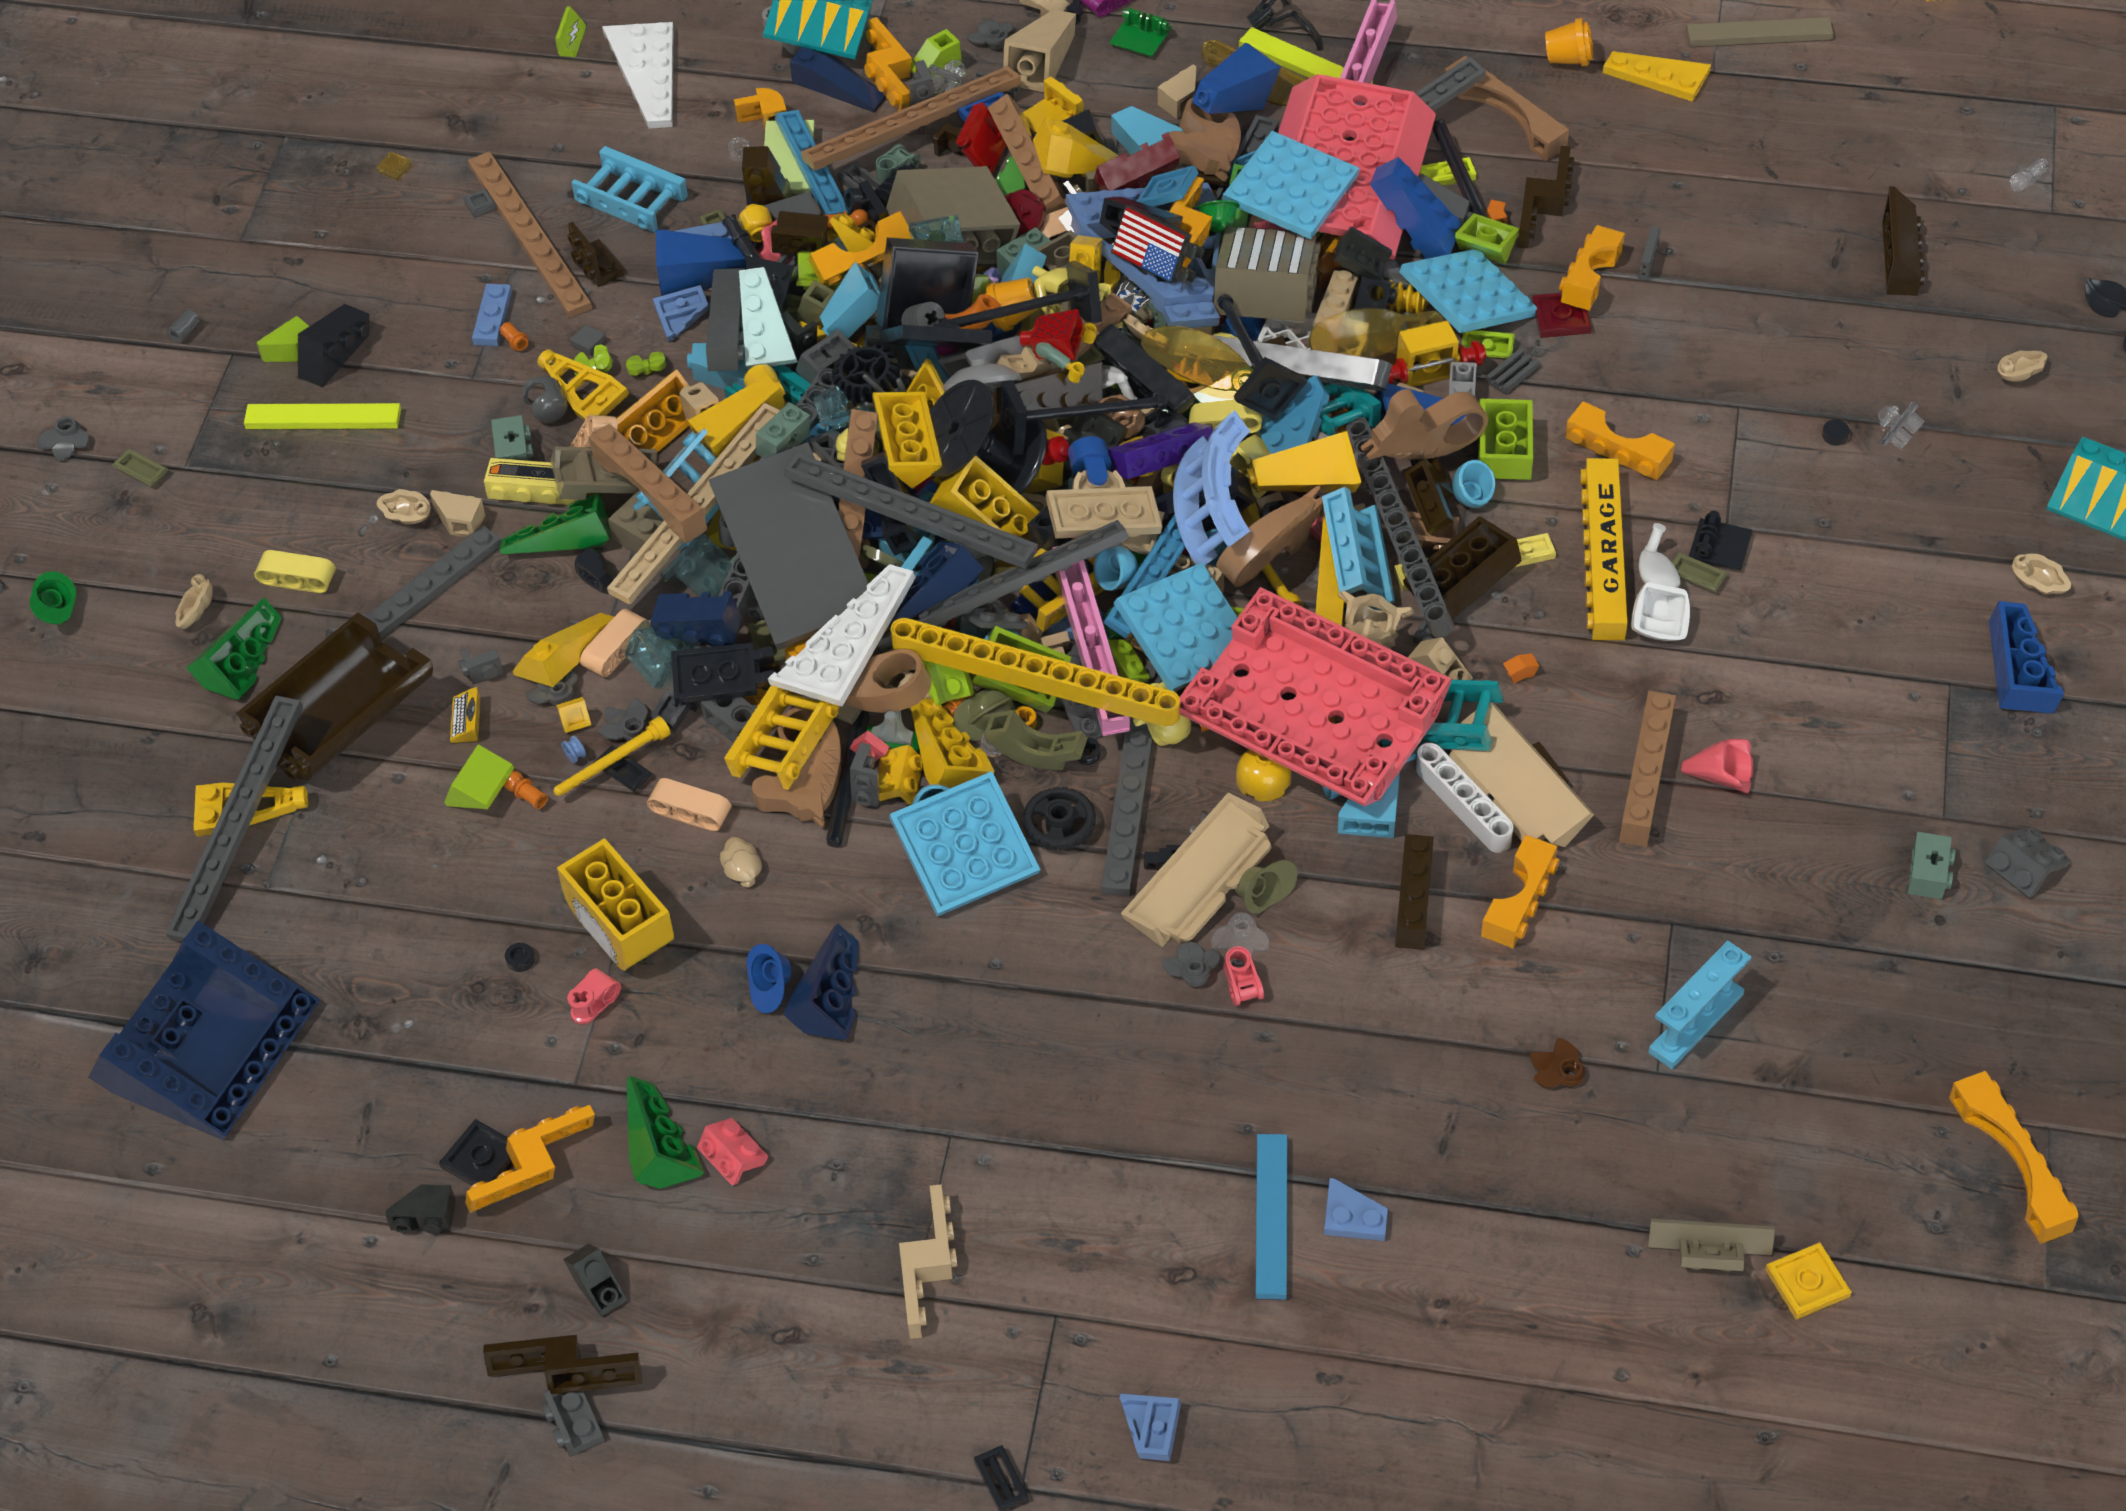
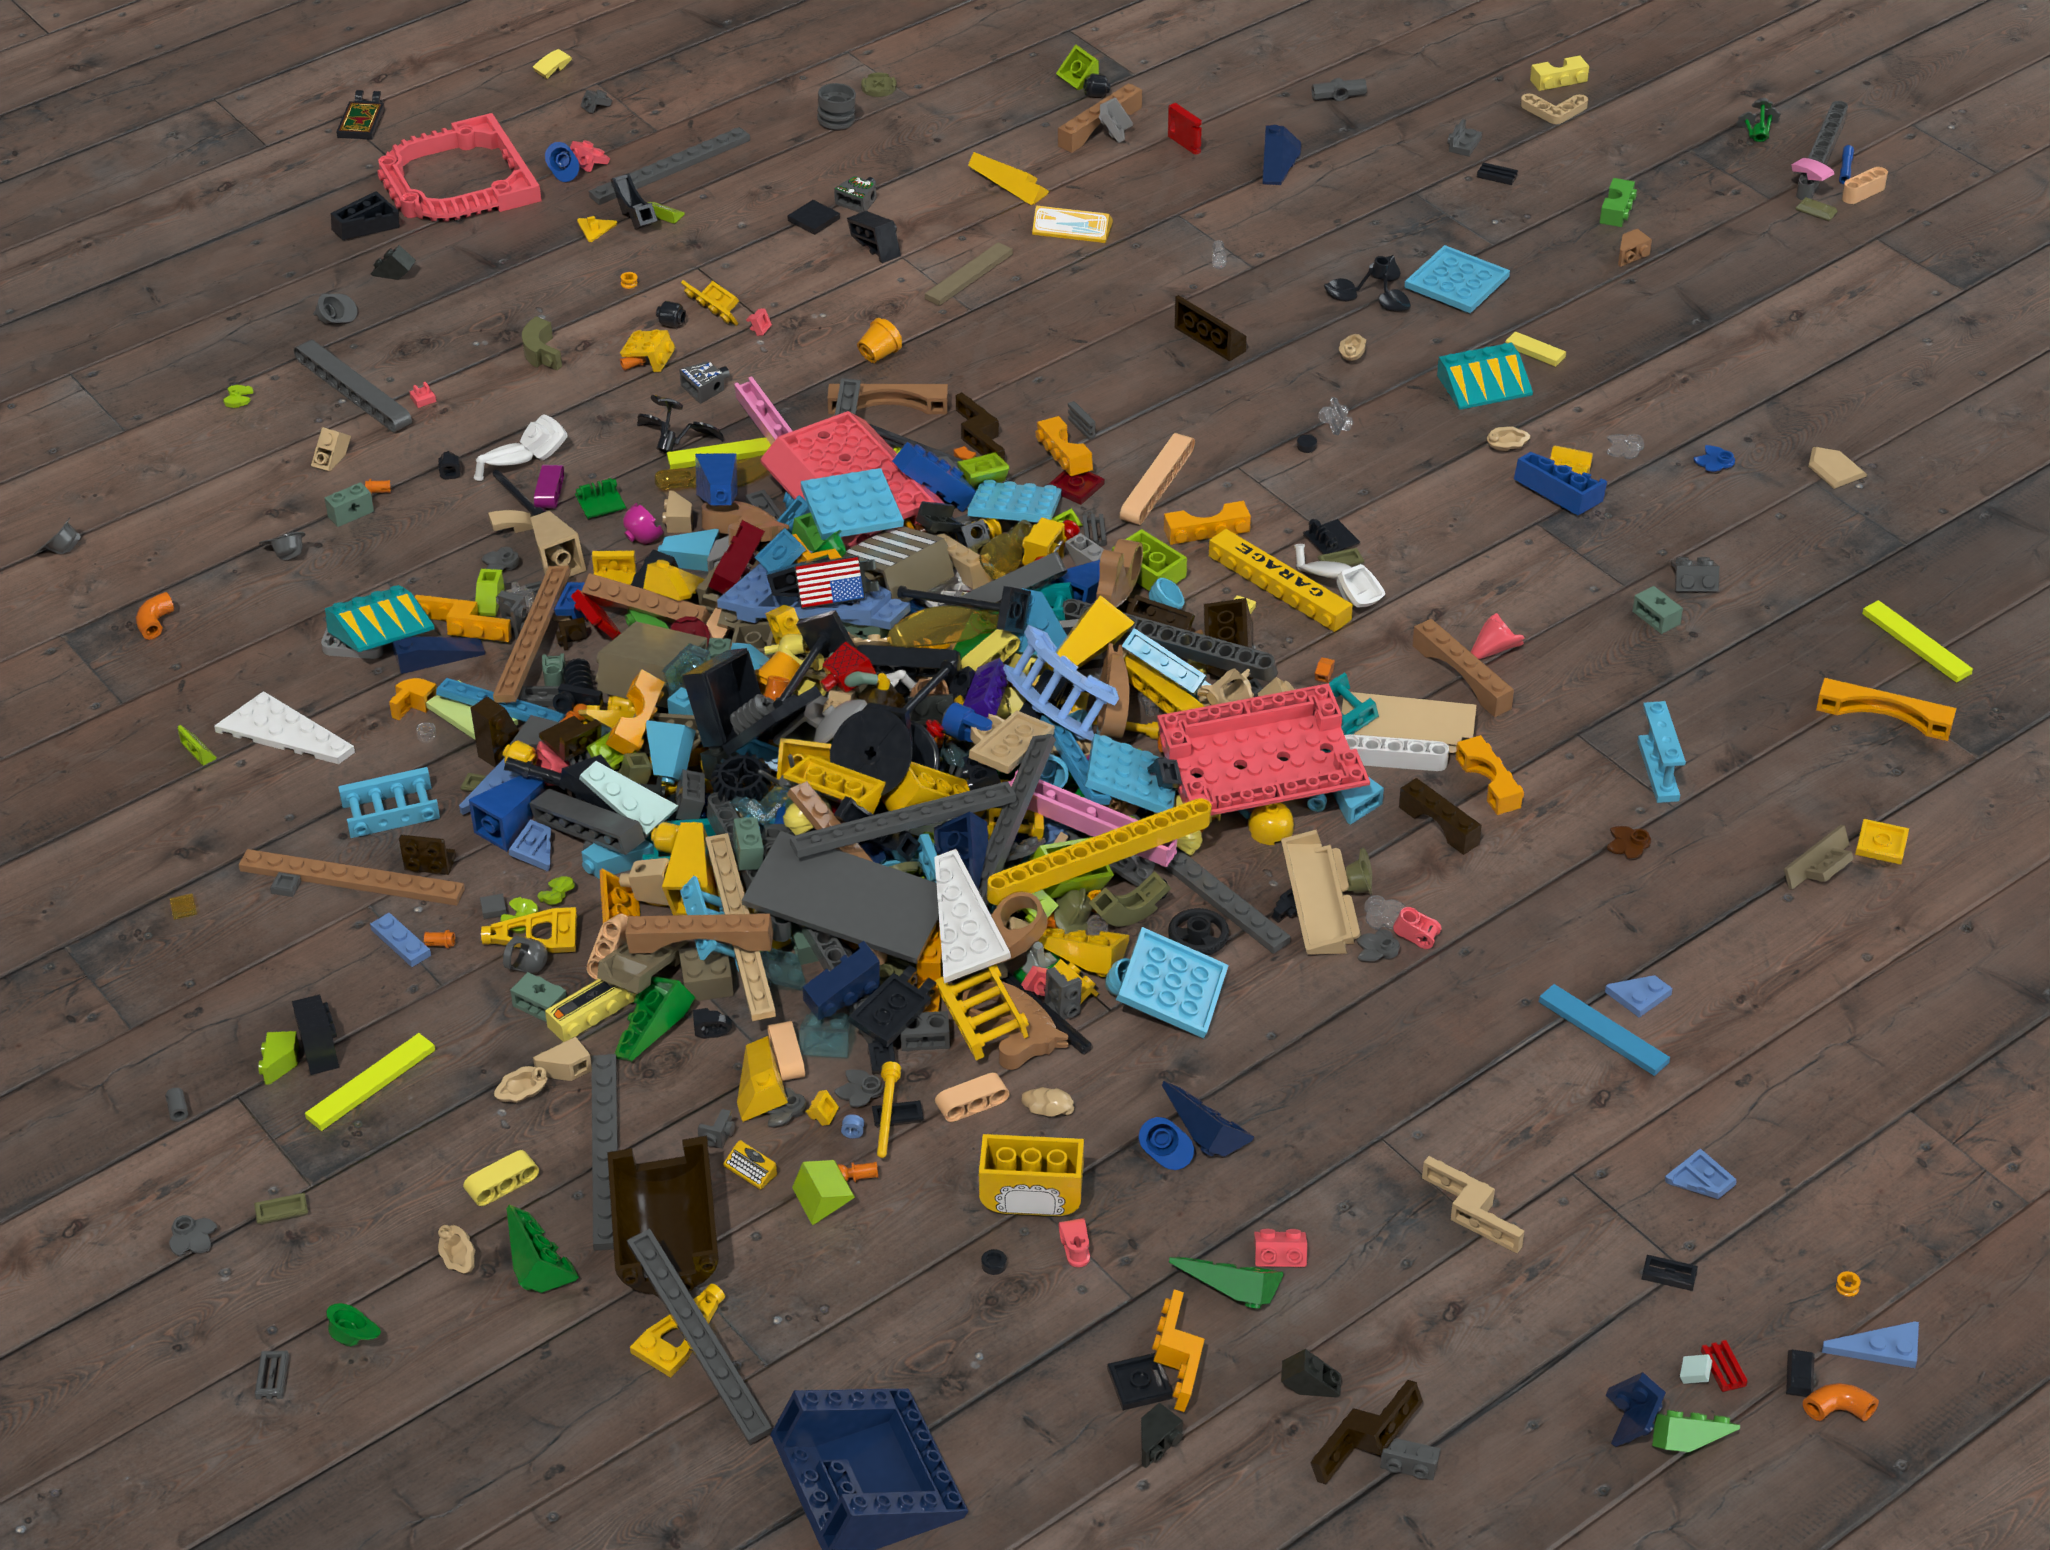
camera: 50 degrees left, 10 degrees down
(1132, 82) = (641, 525): none -> dark pink cylinder
(1207, 648) = (1166, 772): none -> black bracket
(1638, 363) = (1157, 479): none -> light nougat beam
(1661, 74) = (946, 328): yellow wing -> none
(1927, 46) = (1071, 224): none -> slope
(2068, 647) = (1577, 459): none -> yellow bracket

